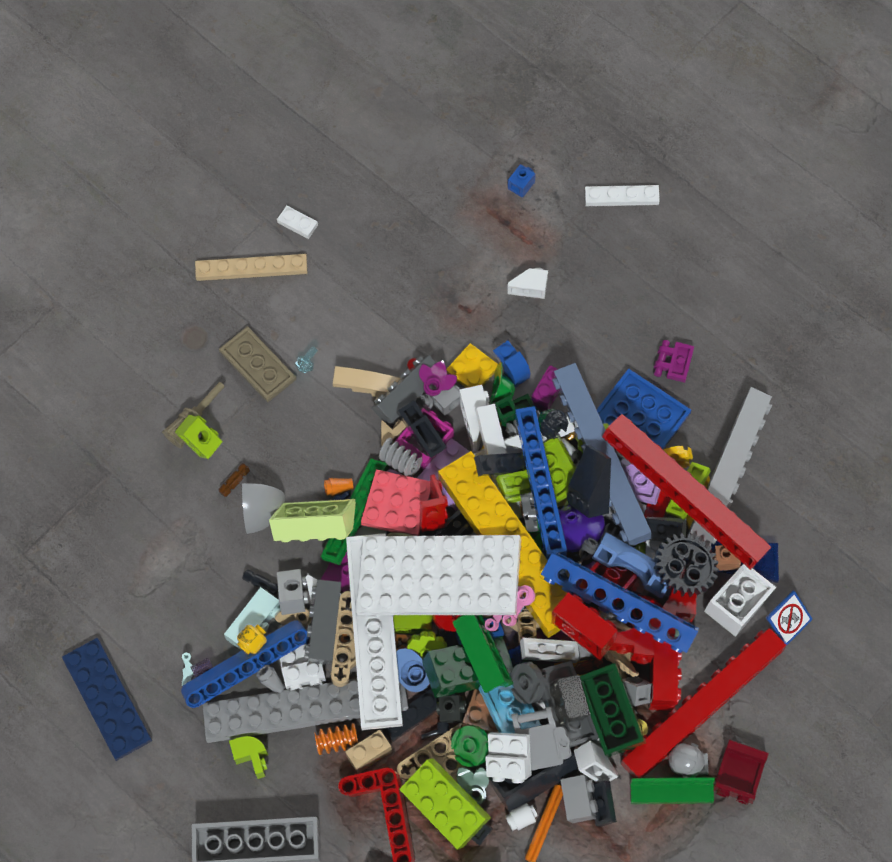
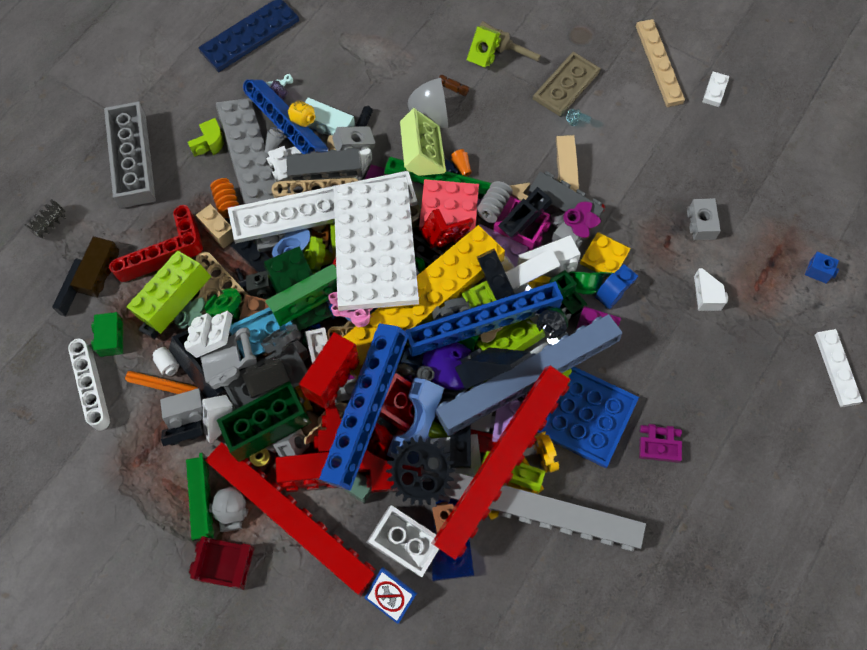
camera: 80 degrees right, 0 degrees up
(443, 262) = (706, 210): none -> light grey brick

